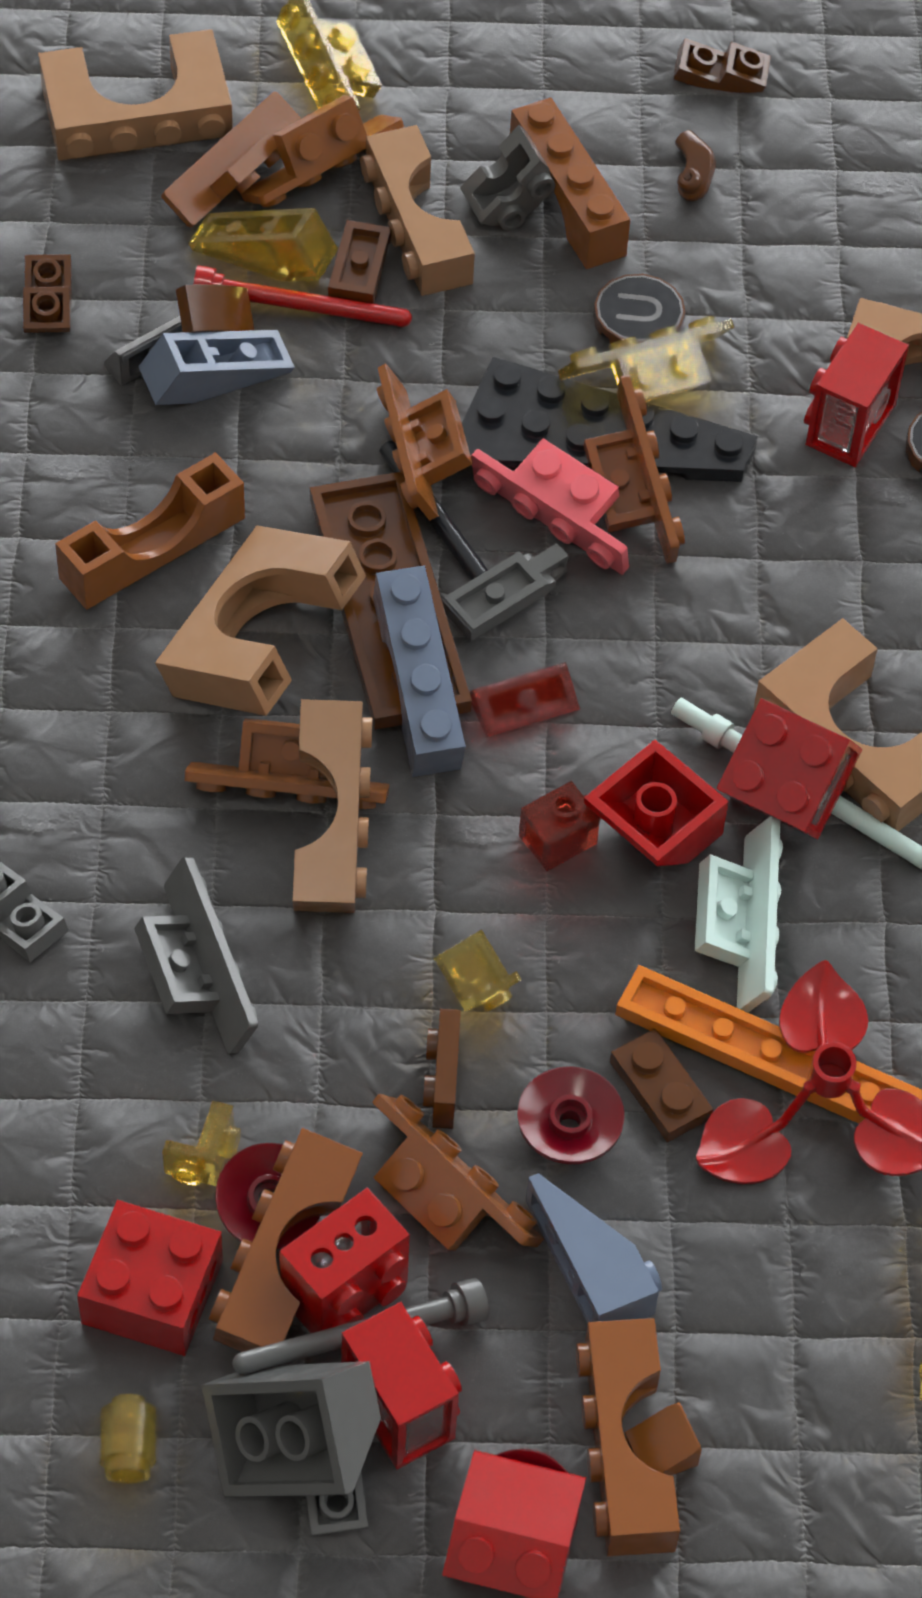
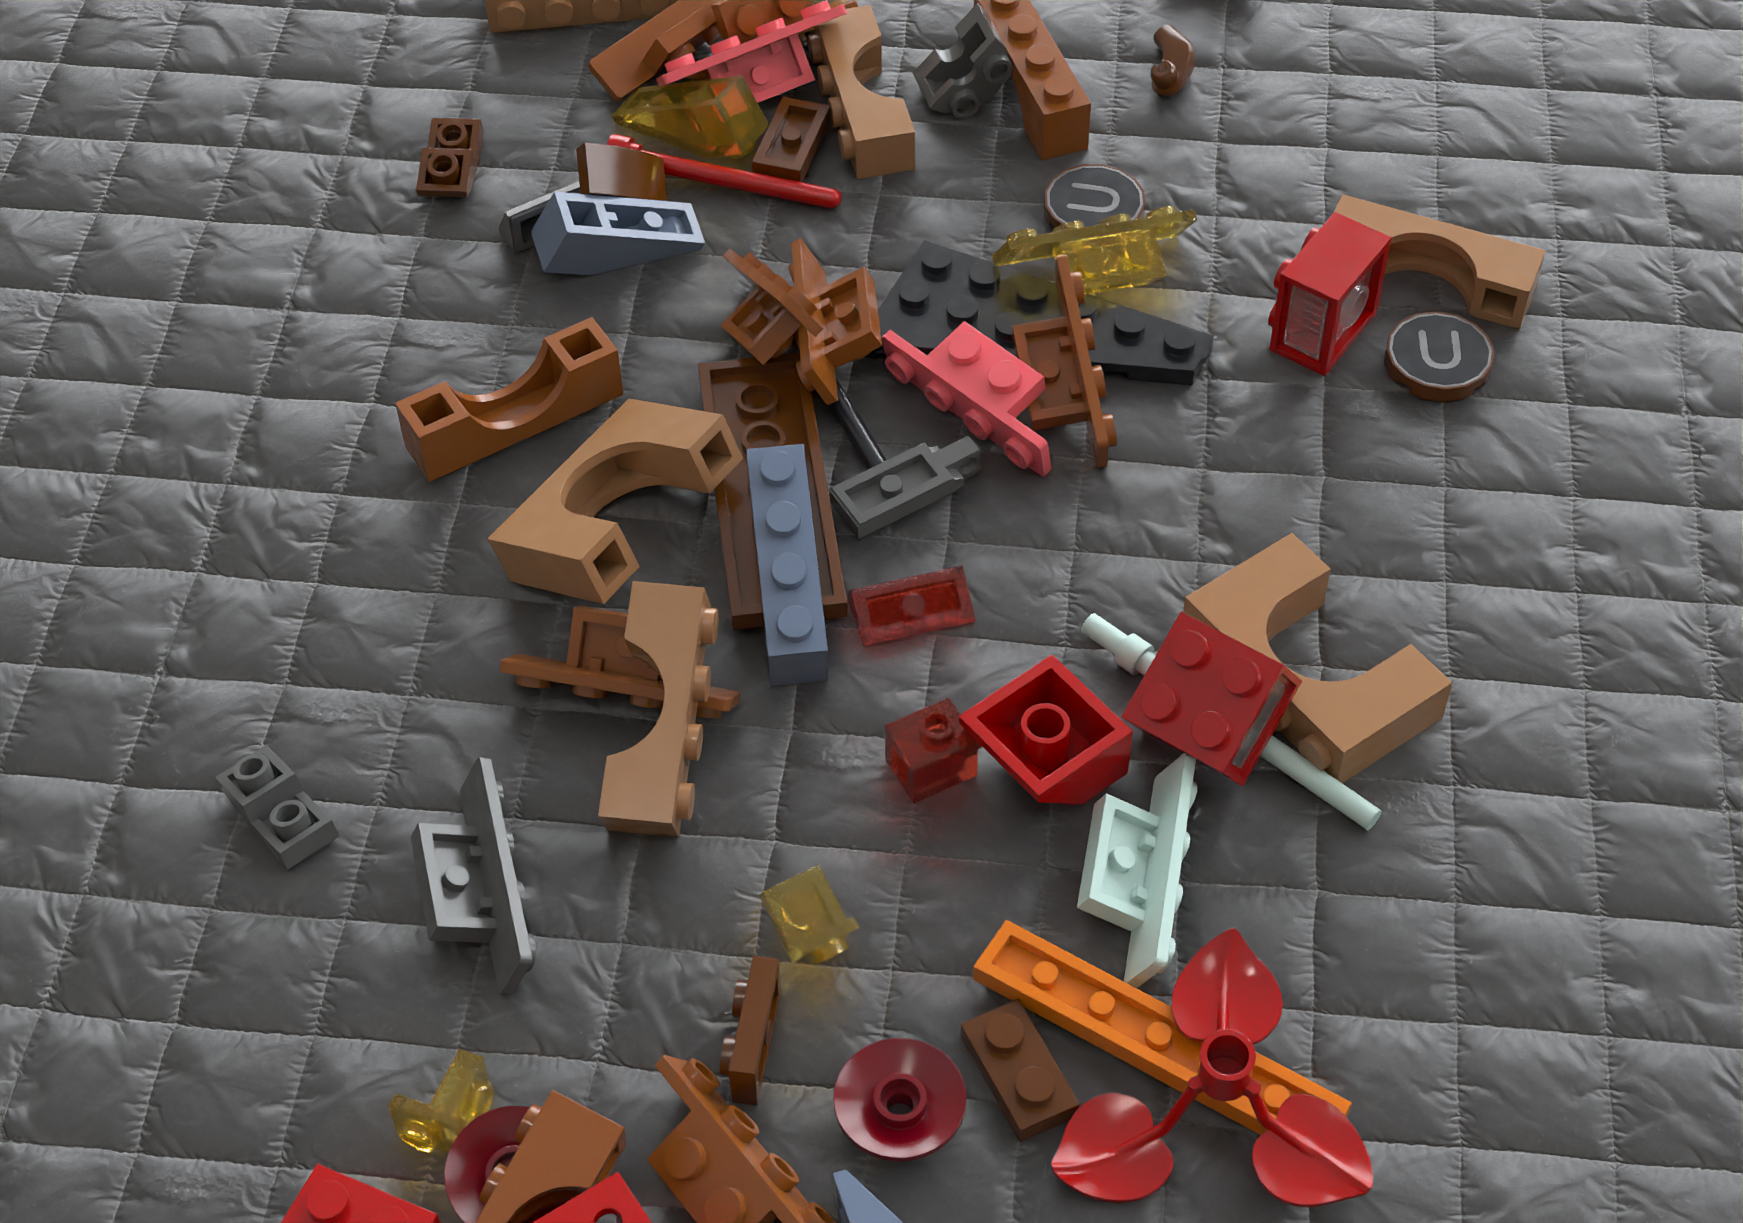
camera: 10 degrees right, 5 degrees down
(329, 187) = (768, 63): none -> coral bracket
(368, 437) = (770, 313): none -> dark orange bracket

